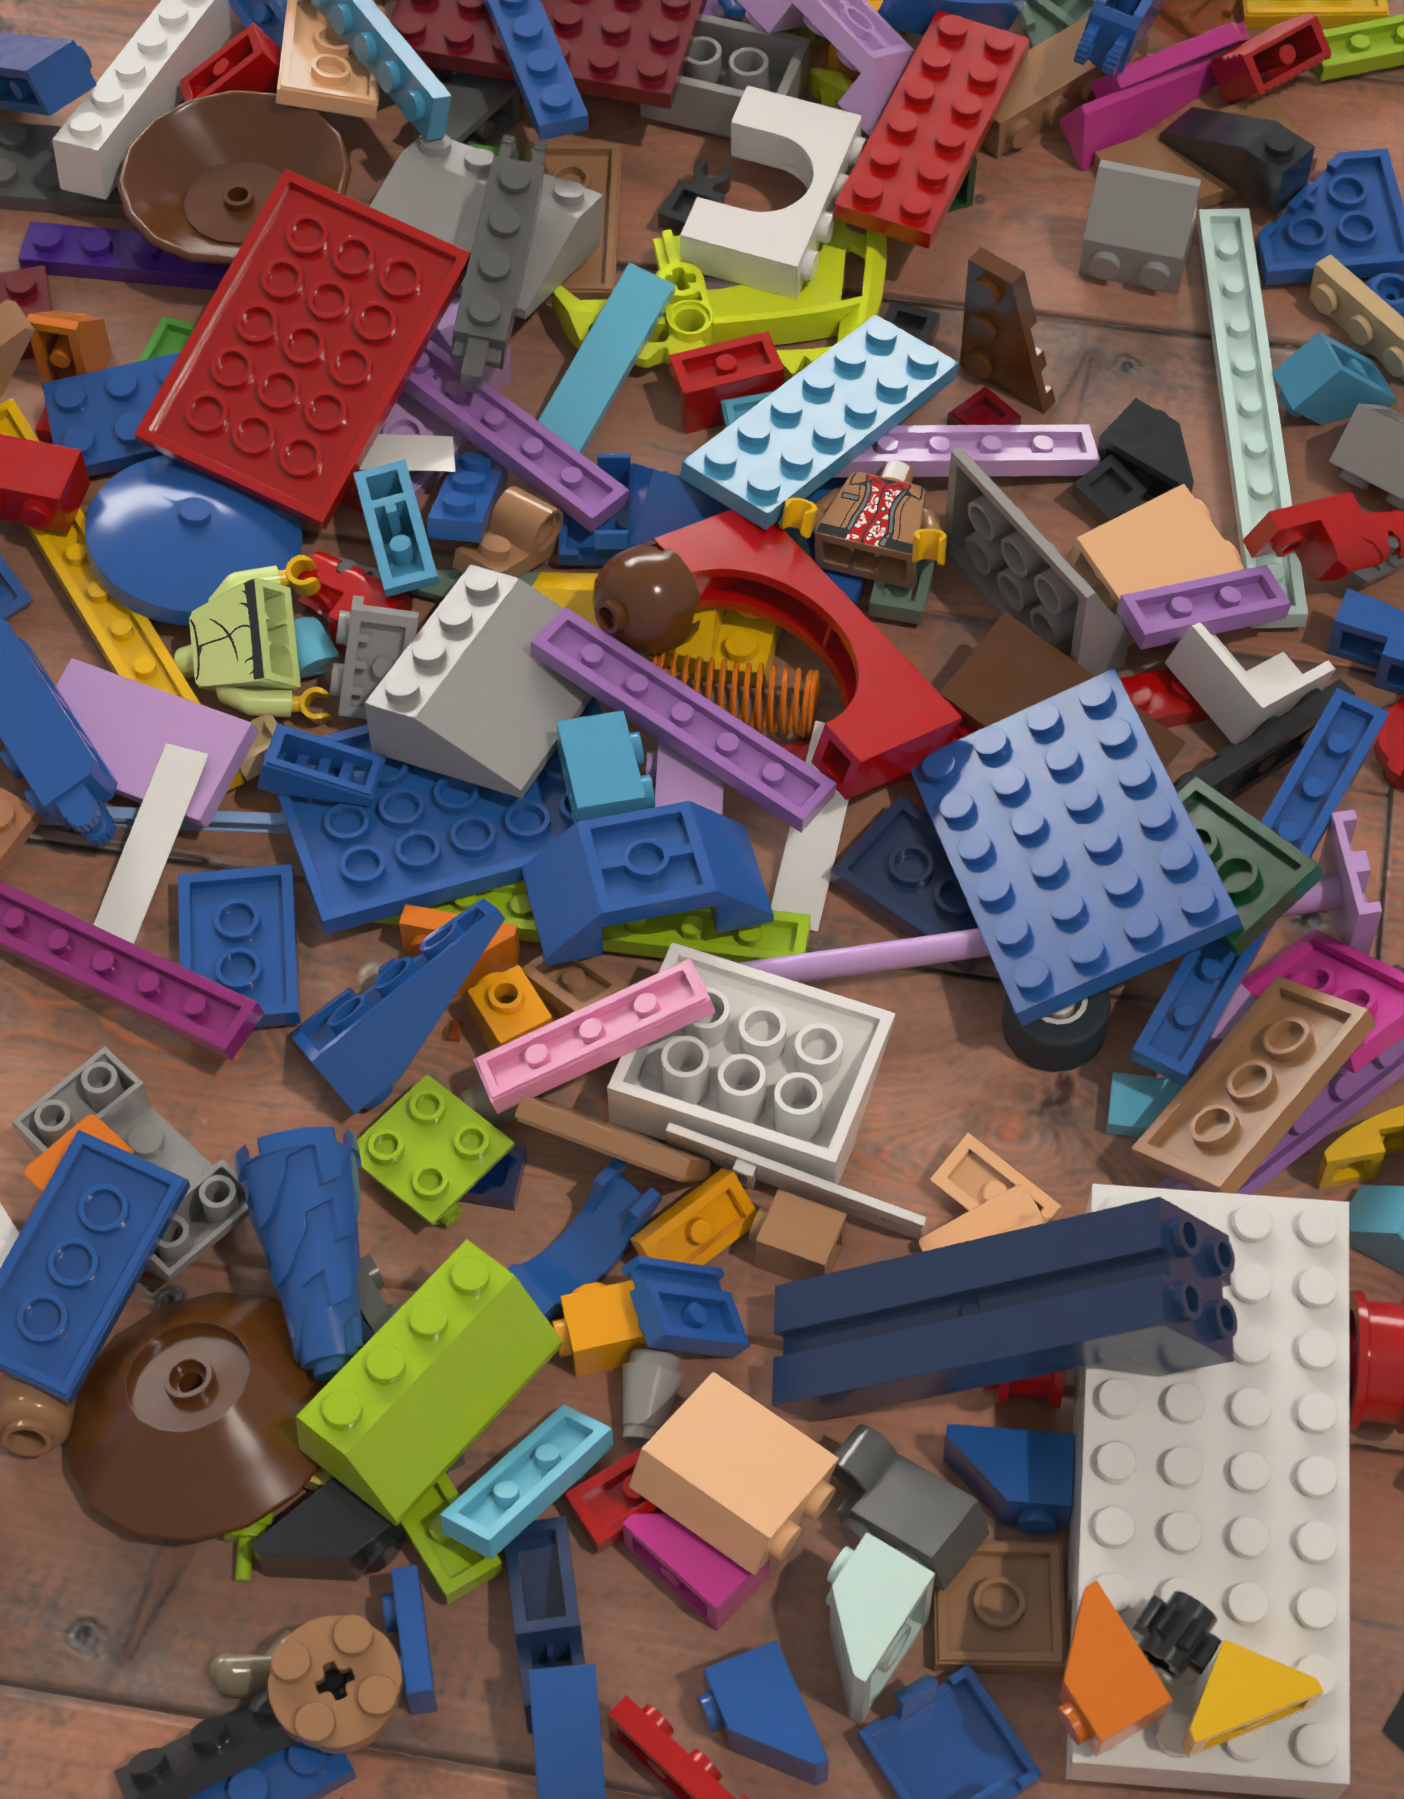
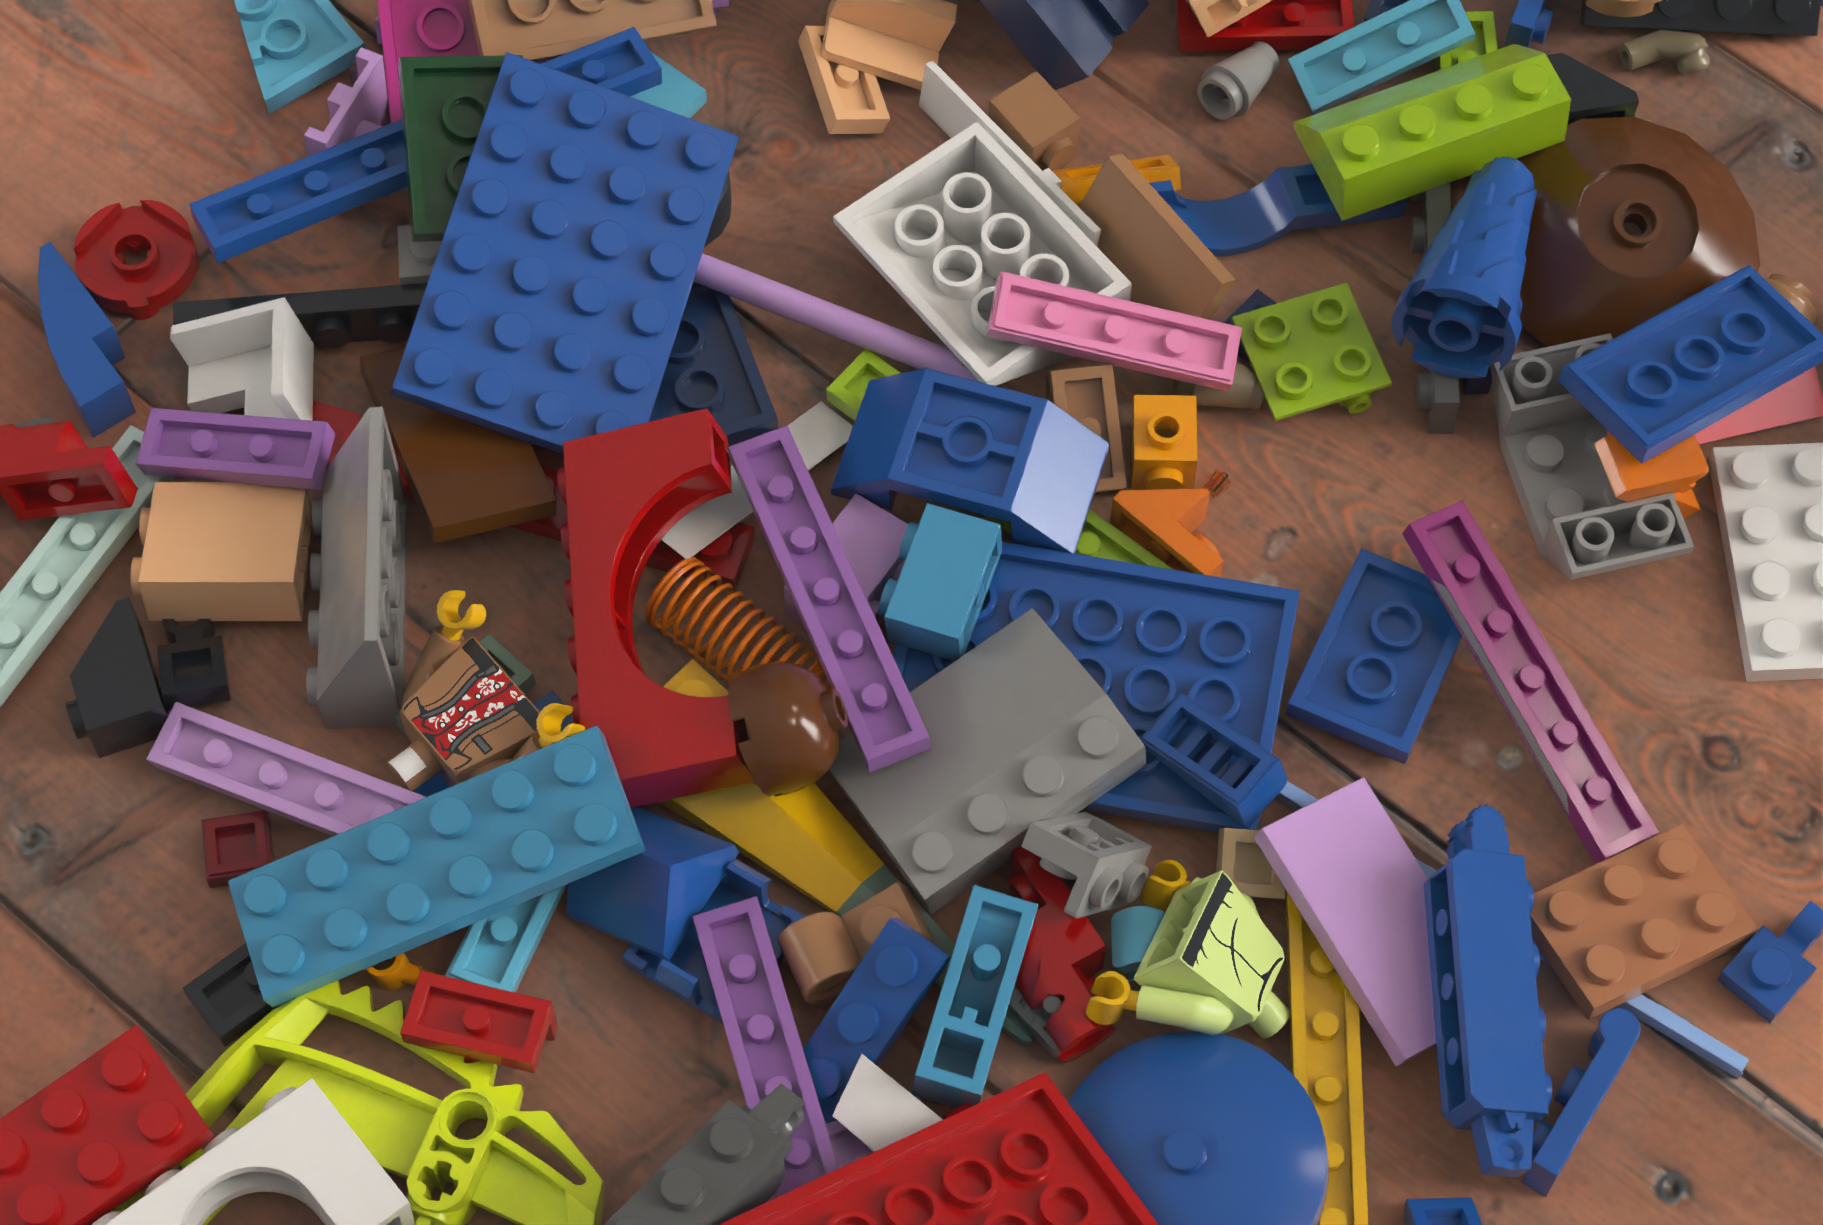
camera: 150 degrees left, 5 degrees up
(150, 841) = (1425, 794): white sticker -> none
(373, 1036) = (1277, 480): blue wedge -> none
(599, 1327) = (1246, 141): light orange brick -> none
(607, 356) = (598, 1123): medium azure tile -> none
(685, 1307) = (1172, 104): blue plate -> none
(998, 331) = (164, 879): reddish brown wing -> none

